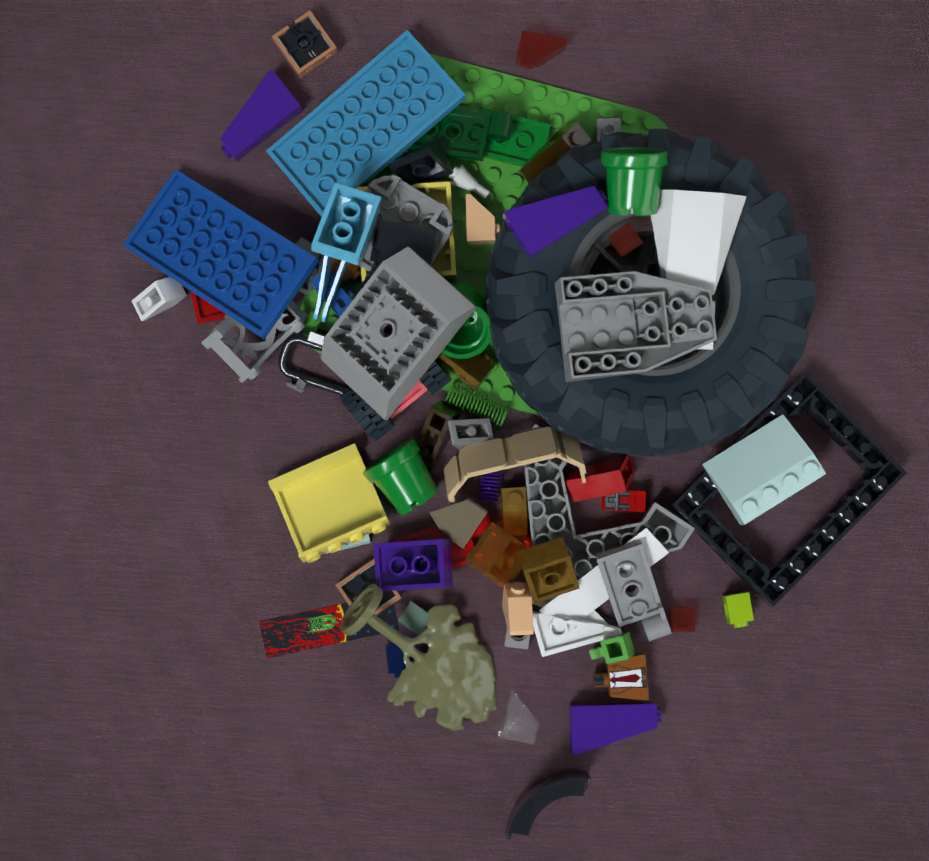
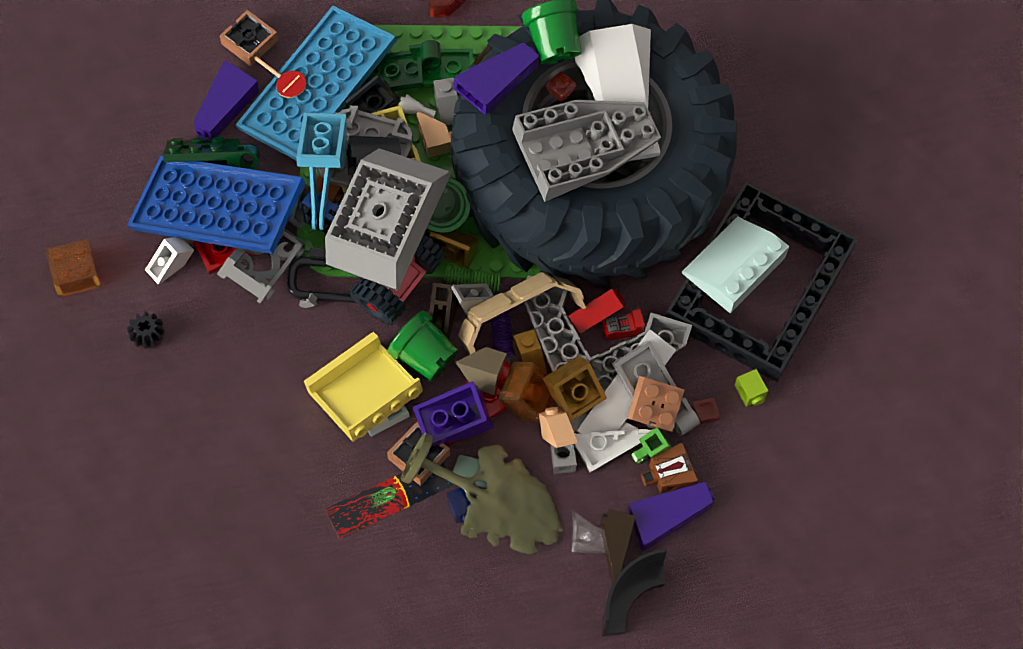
camera: 10 degrees left, 20 degrees down
(54, 282) = (73, 268): none -> clear orange brick
(114, 384) = (147, 336): none -> black gear
(244, 183) = (211, 149): none -> dark green hinge
(336, 118) = (289, 84): none -> red piece
(504, 185) = (445, 100): none -> light grey slope
(548, 735) = (616, 535): none -> dark brown slope
(629, 608) = (655, 403): none -> nougat piece

